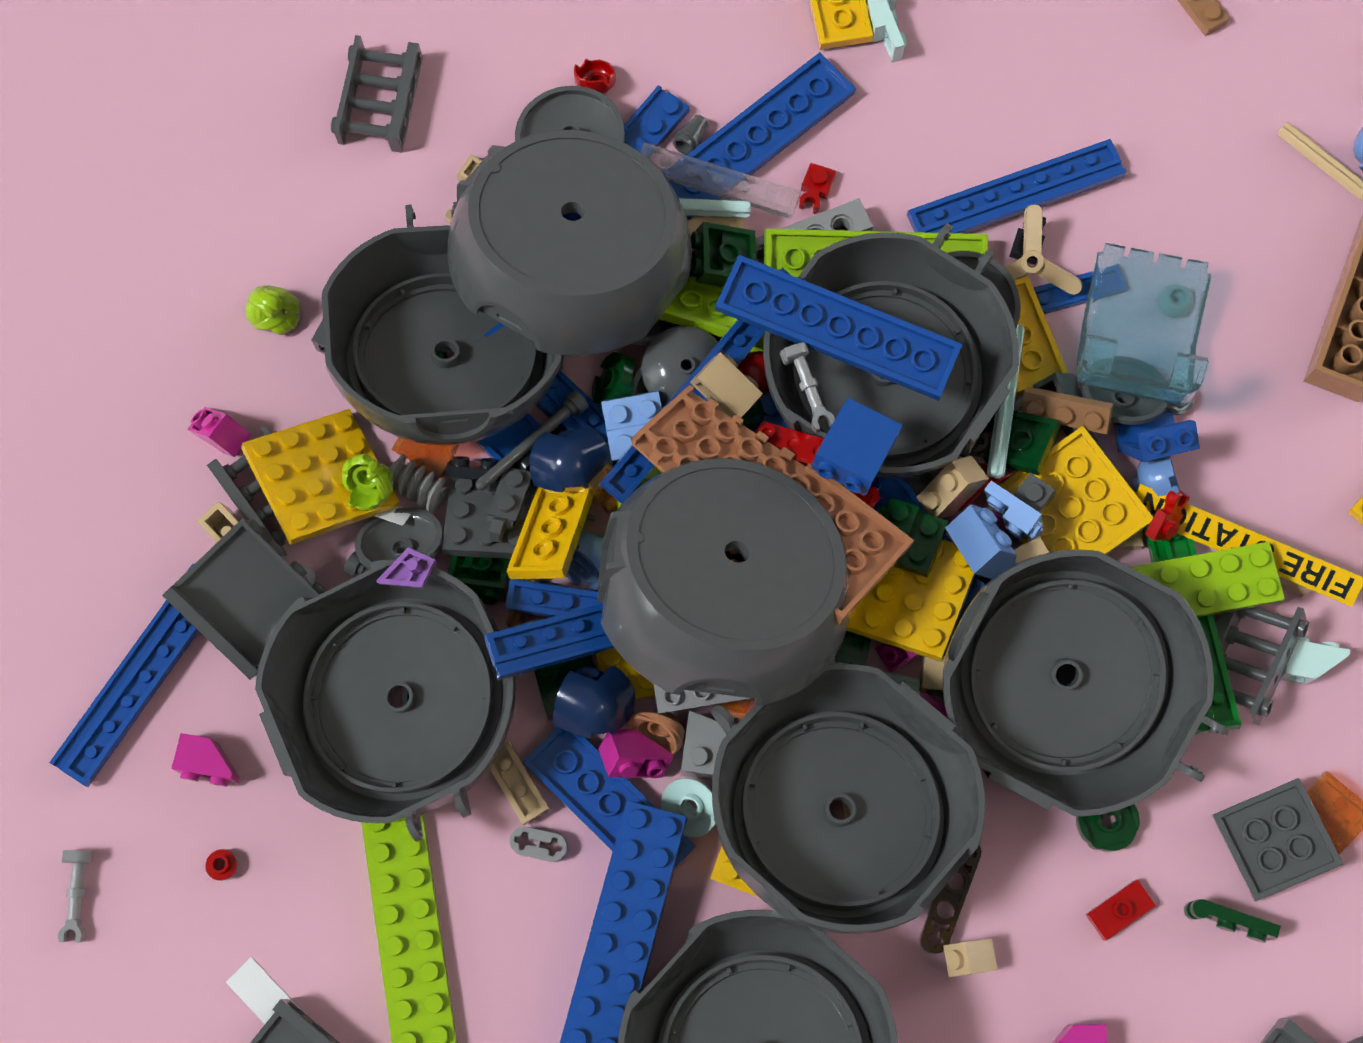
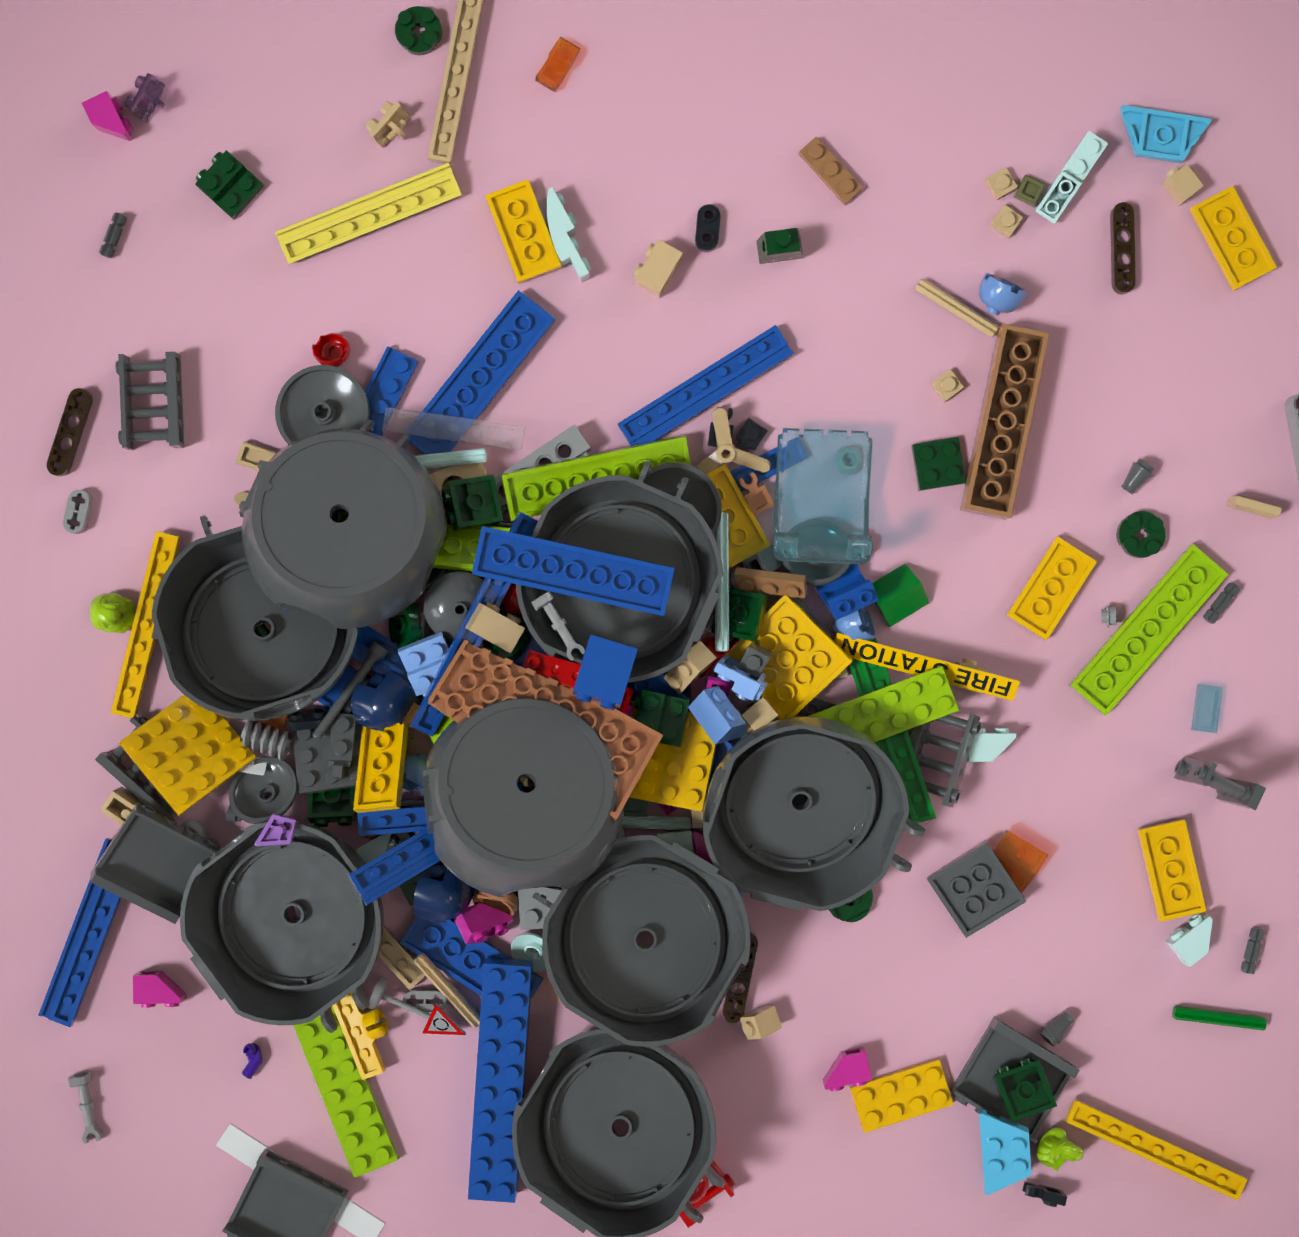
camera: 15 degrees left, 15 degrees up
(219, 431) = (96, 726): dark pink slope -> none
(227, 871) = (197, 1063): red plate -> none
(259, 194) = (72, 510): none -> light grey beam
(281, 113) = (73, 433): none -> dark brown beam
(296, 348) = (140, 642): none -> yellow plate
(305, 876) = (254, 1057): none -> dark purple arm
(369, 487) = (228, 753): lime hair -> none
(448, 867) = (360, 1033): none -> yellow plate
(552, 871) = (438, 1021): none -> light grey piece
(571, 834) = (447, 989): none -> tan axle
(690, 135) = (423, 389): dark grey cone -> none
(816, 184) = (538, 410): red plate -> none
(983, 57) = (658, 267): none -> tan brick
(1045, 28) = (707, 227): none -> black plate
(1060, 319) = (757, 496): none -> nougat plate
(1063, 252) = (750, 435): none -> black plate
(1120, 910) = (867, 962): red plate -> none
(1127, 56) = (779, 246): none -> dark green torso
(1166, 520) = (861, 661): red plate -> none
(1218, 465) = (899, 595): none -> green slope
(1230, 920) = (949, 955): dark green plate -> none
(1283, 325) = (938, 464): none -> dark green plate
(1303, 241) = (947, 385): none -> tan plate

